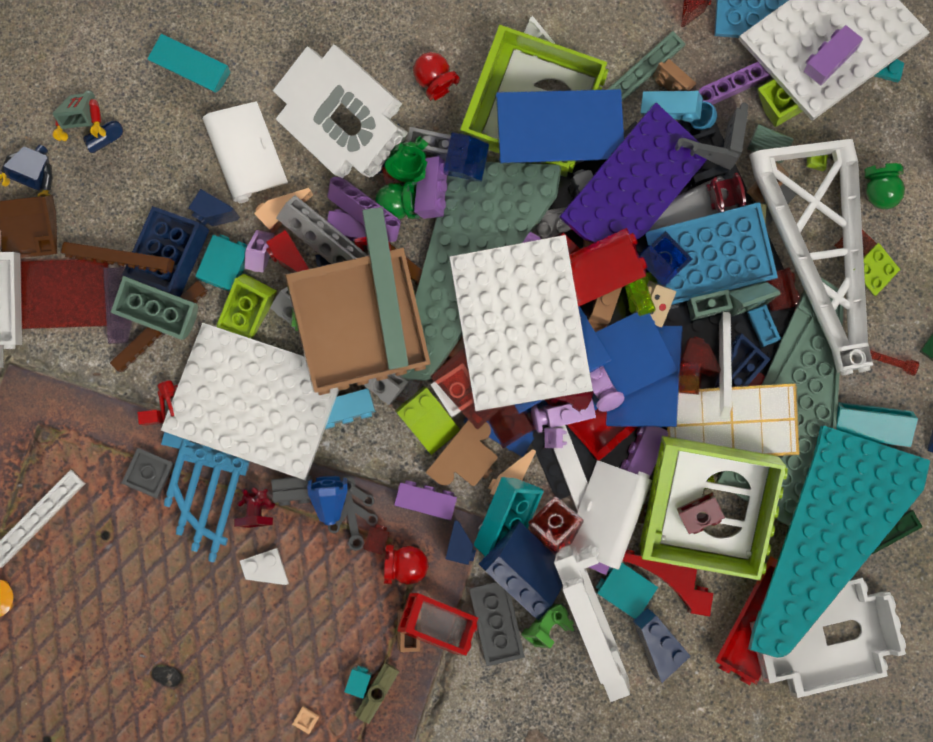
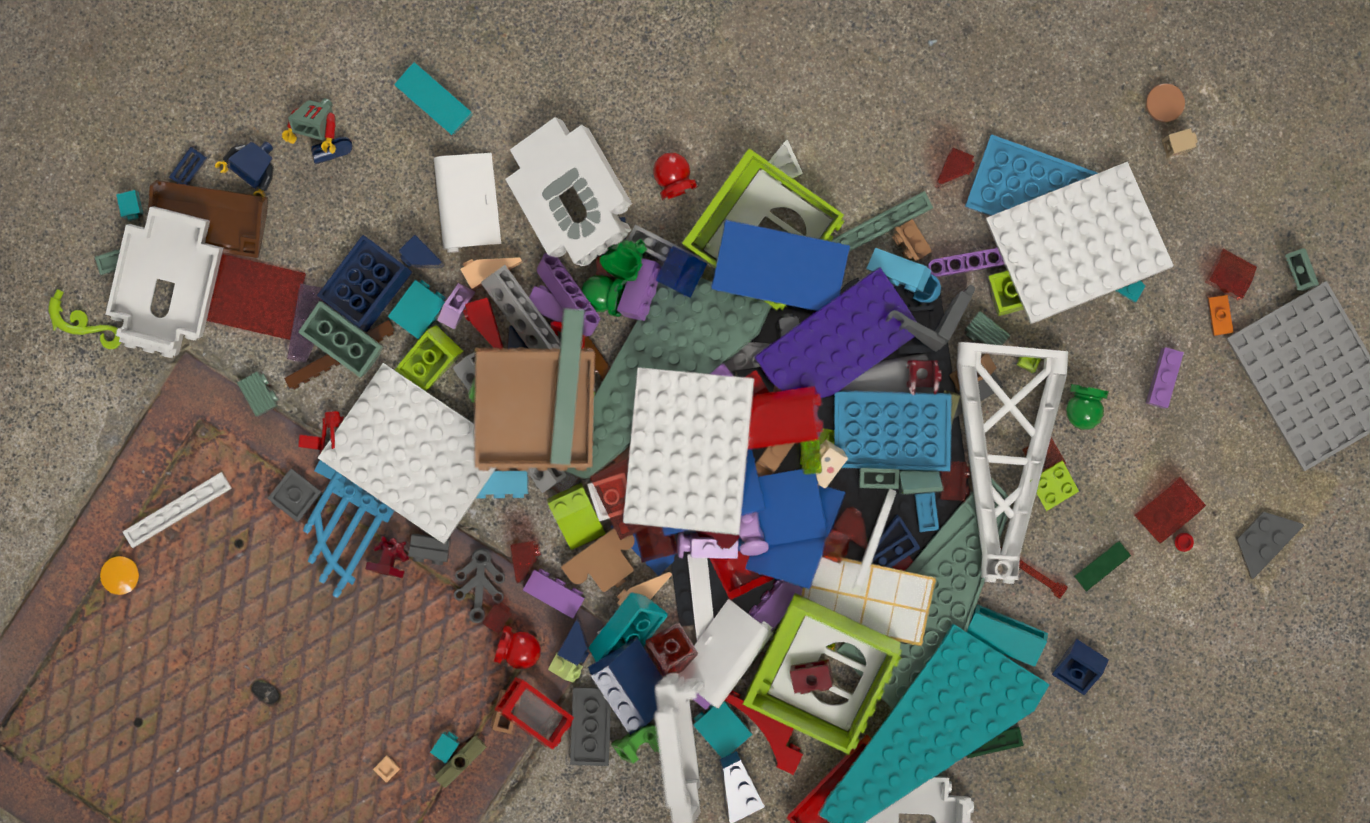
camera: 15 degrees right, 5 degrees up
(88, 384) = (258, 394): none -> sand green brick
(117, 257) = (312, 275): reddish brown piece -> none
(265, 568) = (384, 615): white wing -> none
(328, 497) = (461, 565): blue cone -> none
(388, 473) = (524, 558): none -> clear red slope
(456, 571) = (565, 669): none -> yellowish green bracket
(554, 437) = (692, 567): lavender tile -> none
(665, 258) = (843, 424): clear blue slope -> none
(832, 54) = (1067, 265): medium lavender brick -> none

